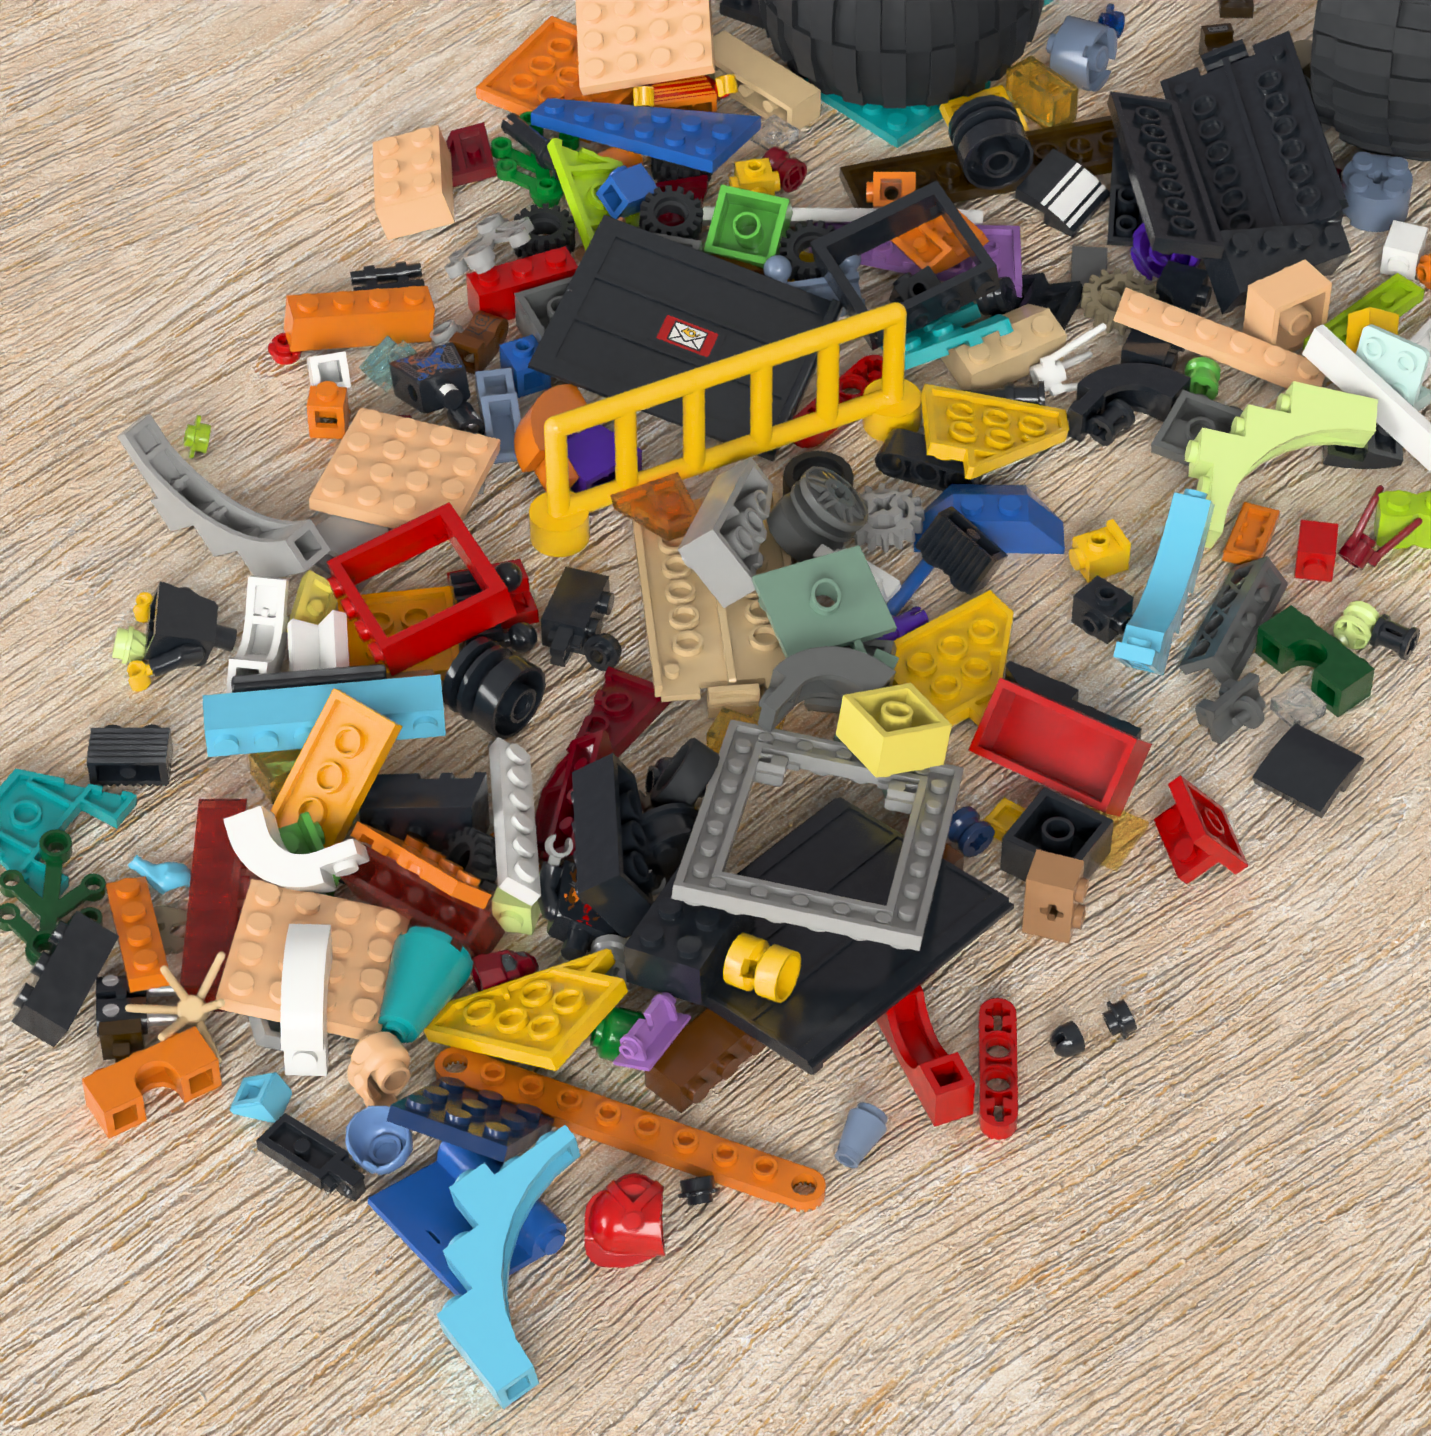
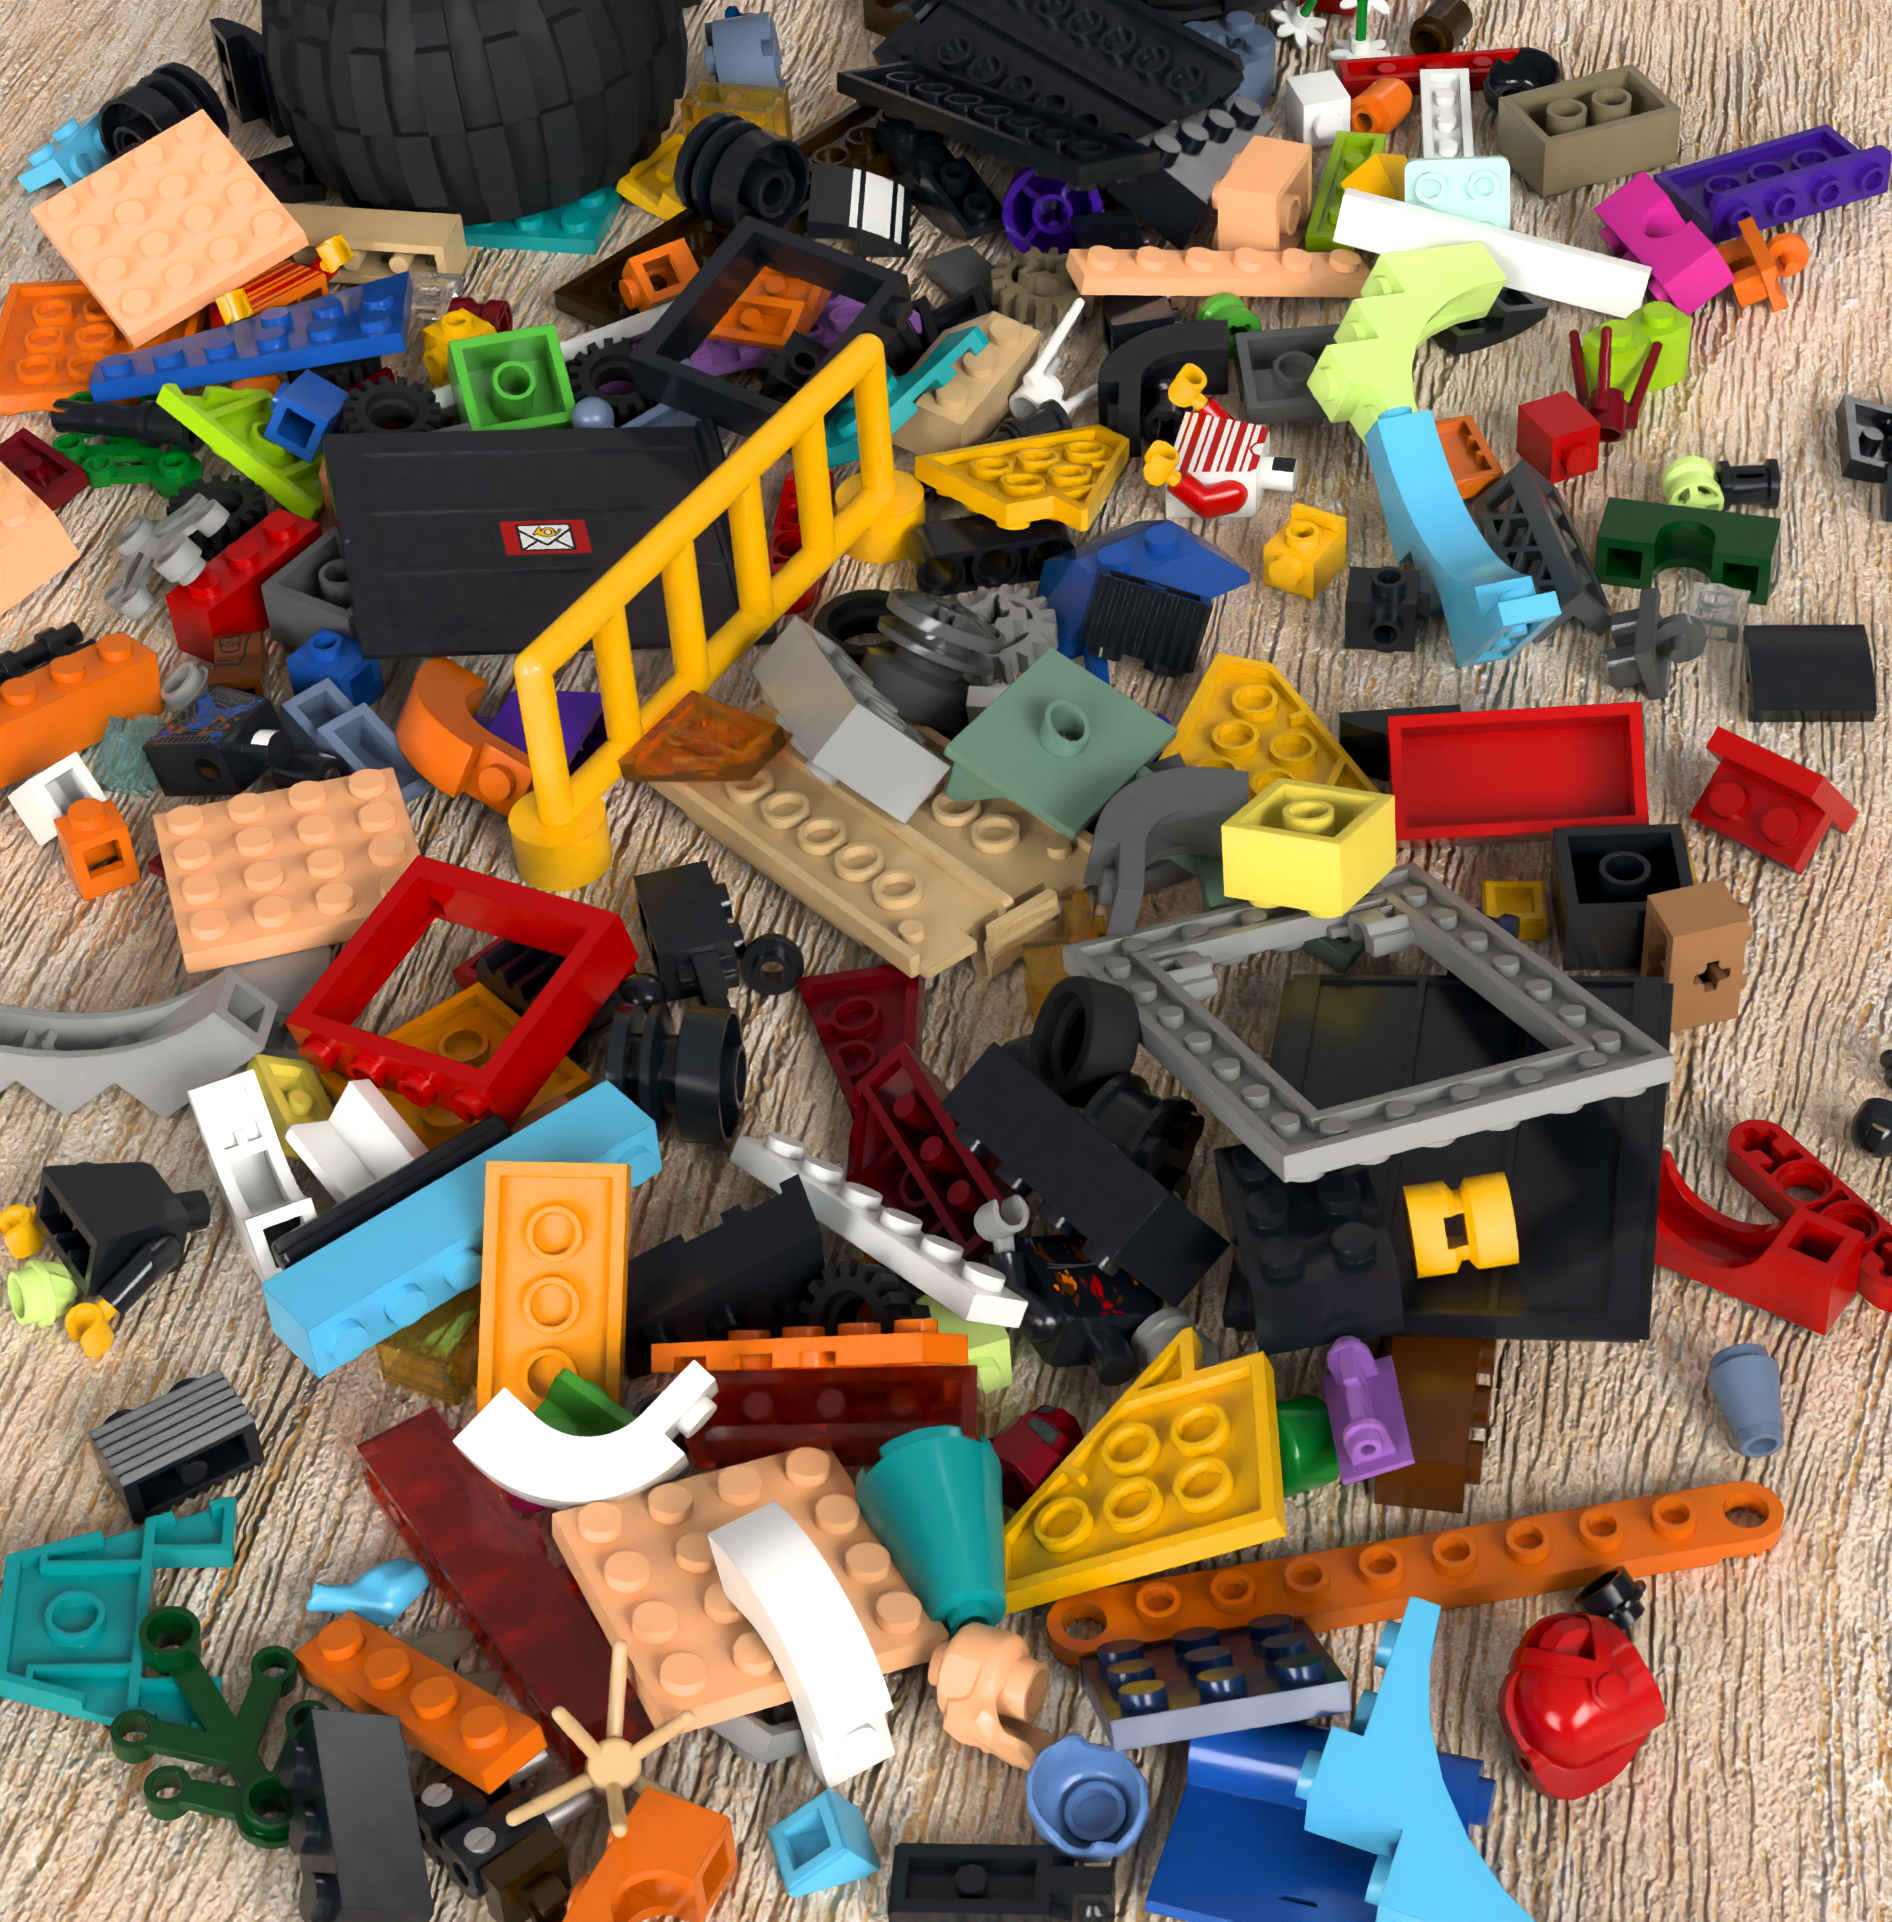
camera: 30 degrees left, 5 degrees down
(1104, 469) = (1216, 460): none -> torso

